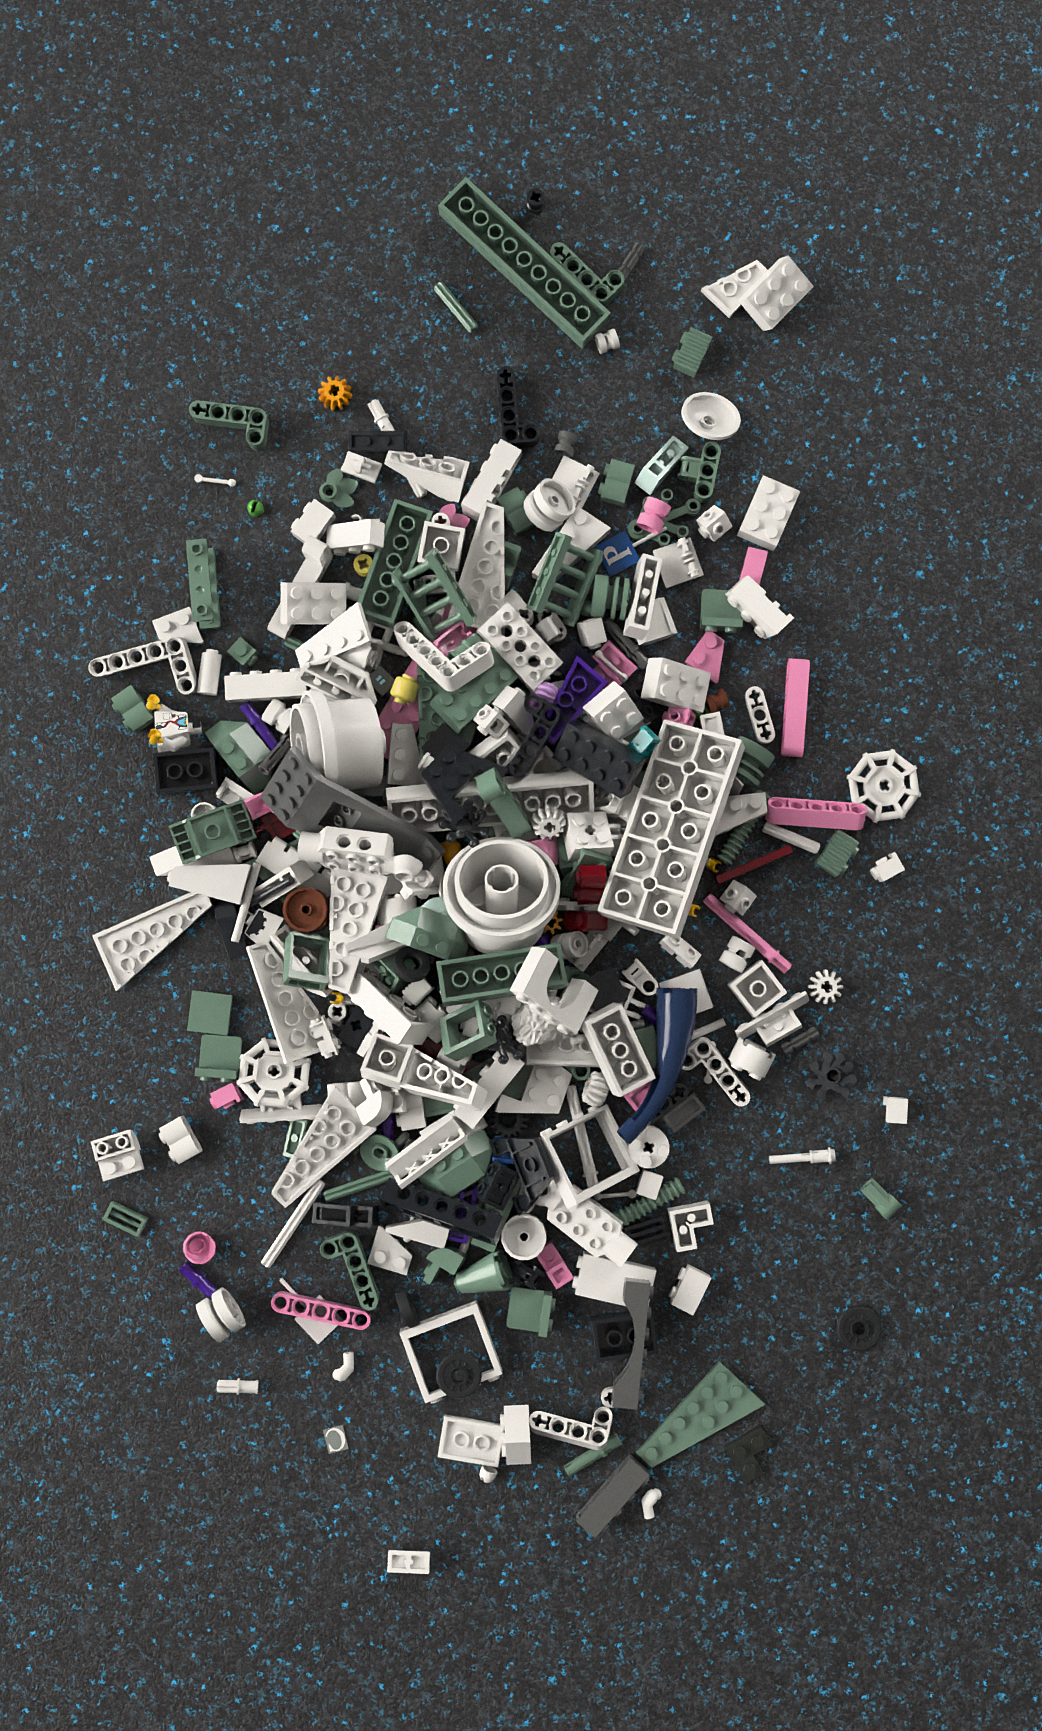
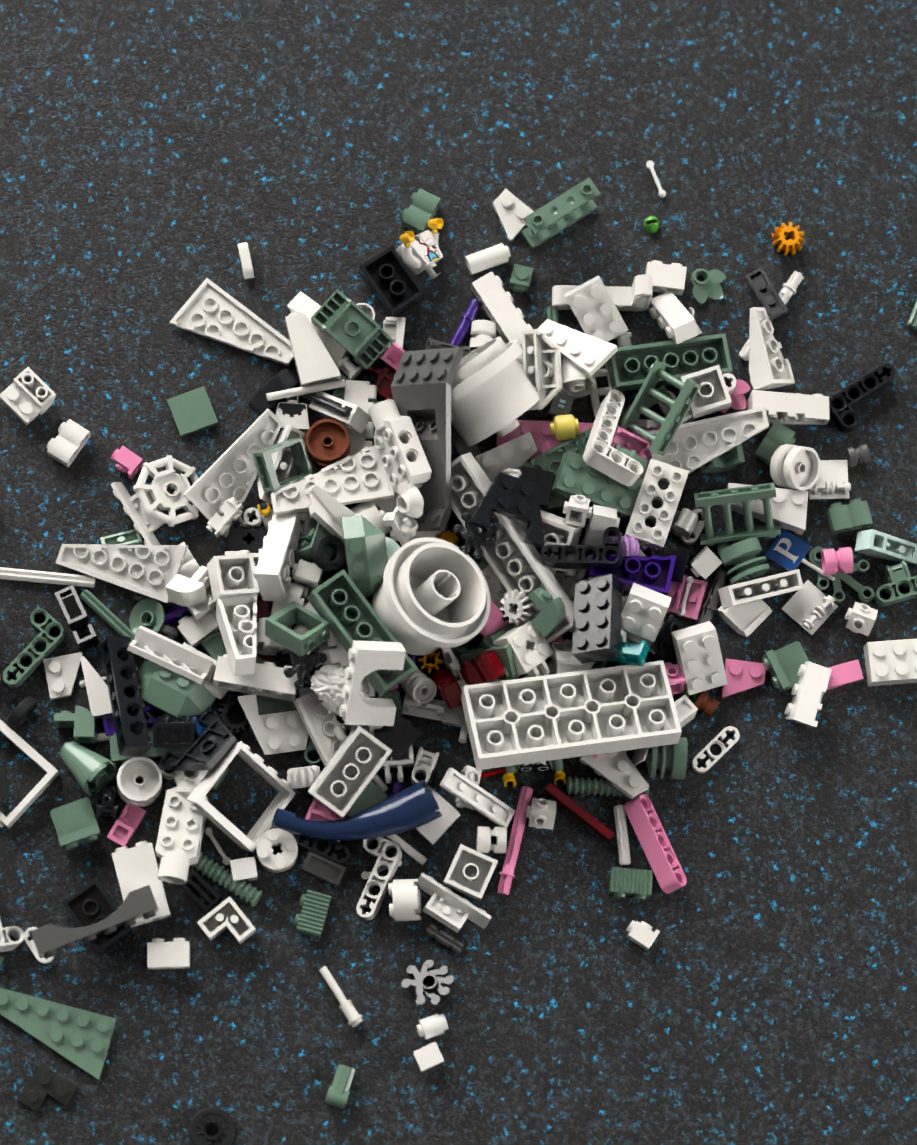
camera: 50 degrees right, 10 degrees down
(94, 891) = (245, 260): none -> white beam
(148, 657) = (471, 201): white beam -> none
(219, 1058) = (157, 438): sand green bracket -> none
(227, 420) = (713, 163): sand green beam -> none
(242, 752) = (435, 318): sand green wedge -> none
(361, 467) = (737, 293): white hips -> none
(362, 568) = (652, 333): light yellow wheel -> none
(496, 792) = (520, 538): sand green beam -> none
(519, 605) = (692, 485): white piece -> none
(571, 795) = (551, 612): none -> sand green brick
(582, 1139) = (252, 790): white axle -> none
(695, 947) = (477, 798): none -> white tile
(719, 1143) = (313, 913): none -> sand green brick
(795, 707) = (739, 777): bright pink beam -> none
(829, 981) = (498, 932): white gear -> none
(870, 1092) = (432, 1026): none -> white brick
(895, 783) = (724, 887): white plate -> none

